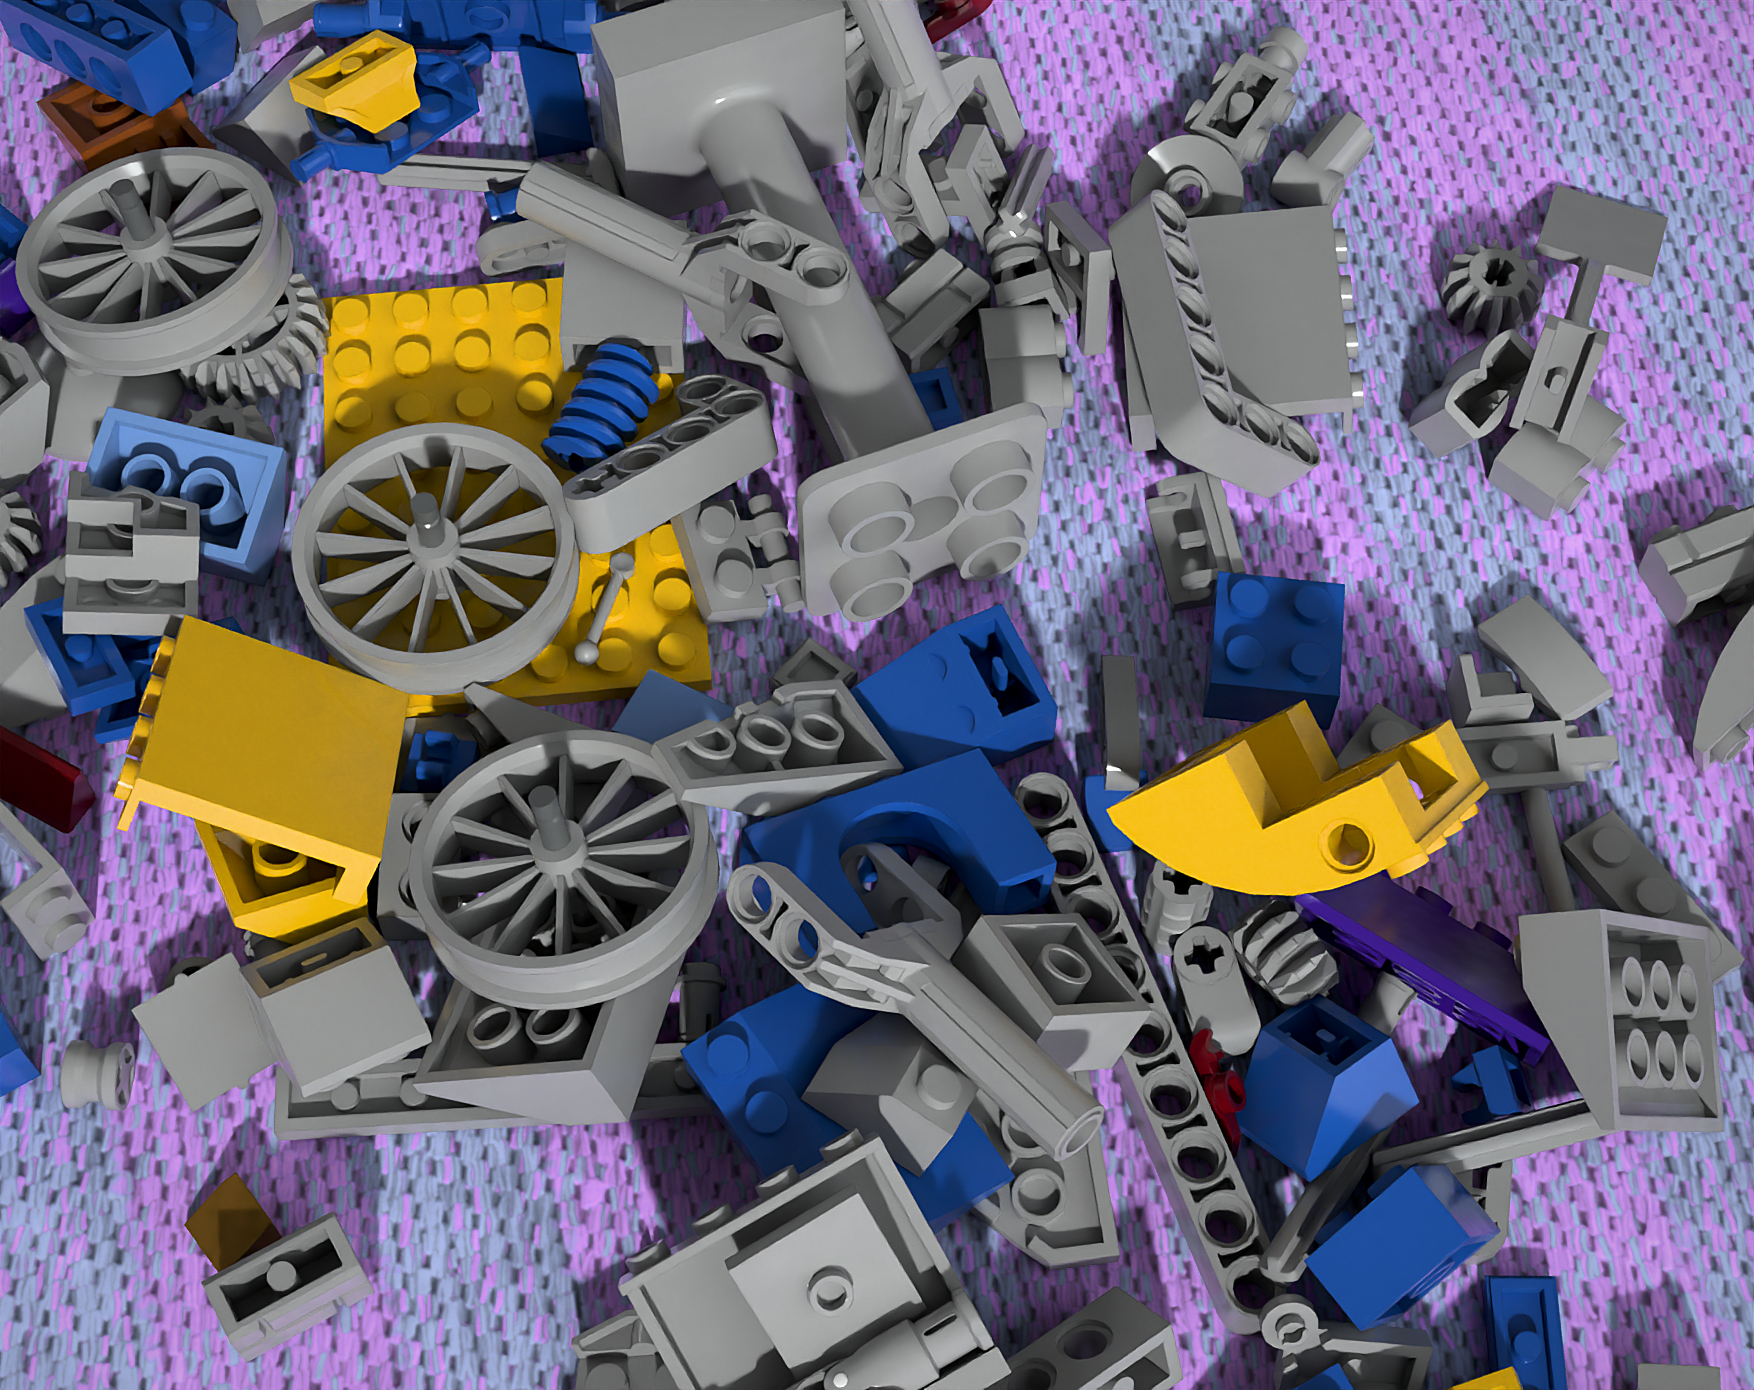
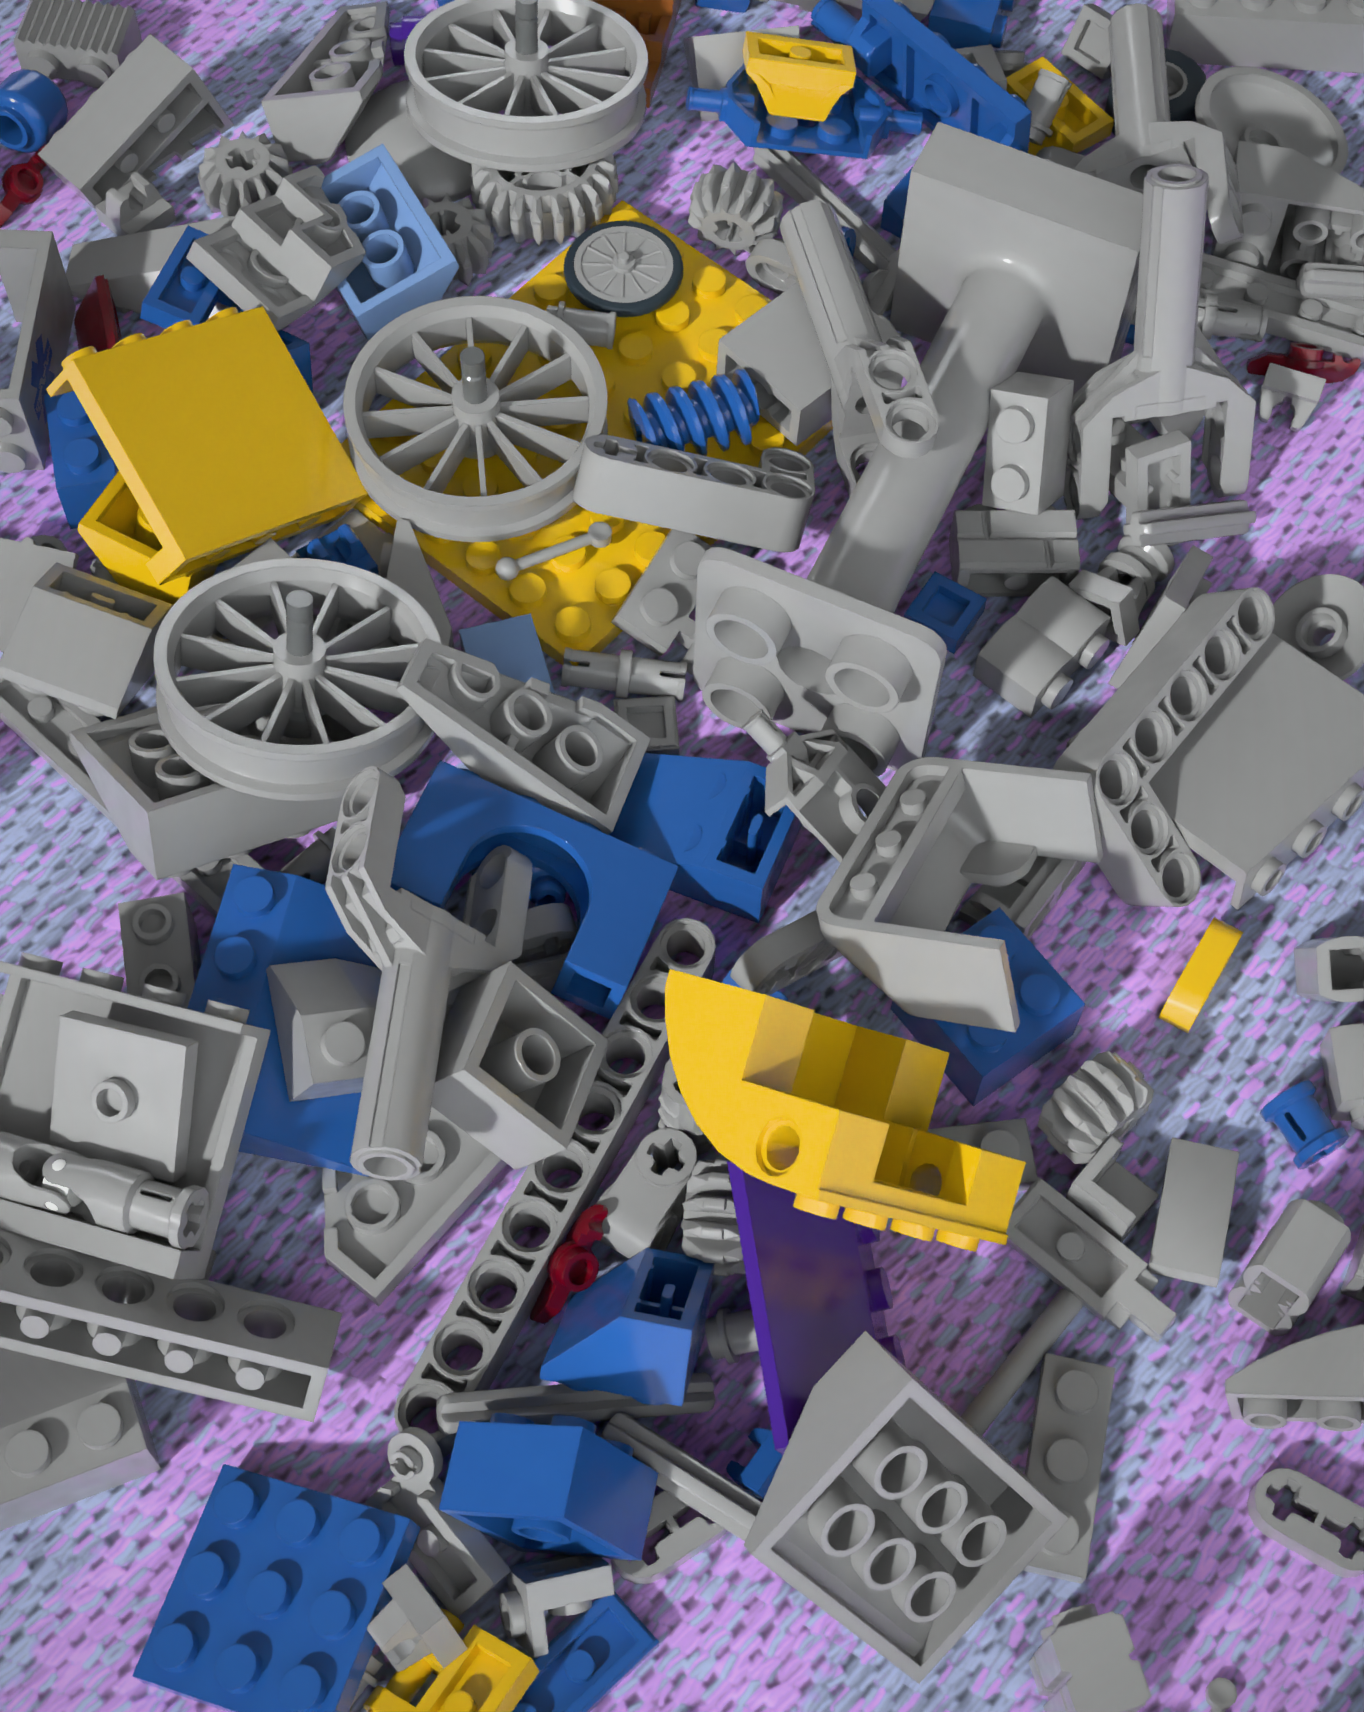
camera: 45 degrees right, 0 degrees up
(136, 872) = (78, 456): none -> blue brick
(401, 348) = (623, 268): none -> light grey wheel
(430, 230) = (735, 208): none -> light grey gear
(436, 408) = (592, 326): none -> light grey pin
(678, 1177) = (160, 944): none -> light grey brick
(755, 653) = (624, 673): none -> light grey pin
(867, 223) = (1027, 442): none -> light grey brick
(981, 31) = (1293, 387): none -> light grey tile
(1049, 597) = (817, 781): none -> light grey plate
(1143, 530) = (914, 861): none -> light grey windscreen
(1374, 499) = (1200, 974): none -> yellow beam
(1421, 649) = (1093, 1105): none -> light grey gear
(1458, 1316) = (555, 1584): none -> light grey bracket
(1543, 538) = (1304, 1124): none -> blue bush
(1649, 634) = (1290, 1266): none -> light grey brick

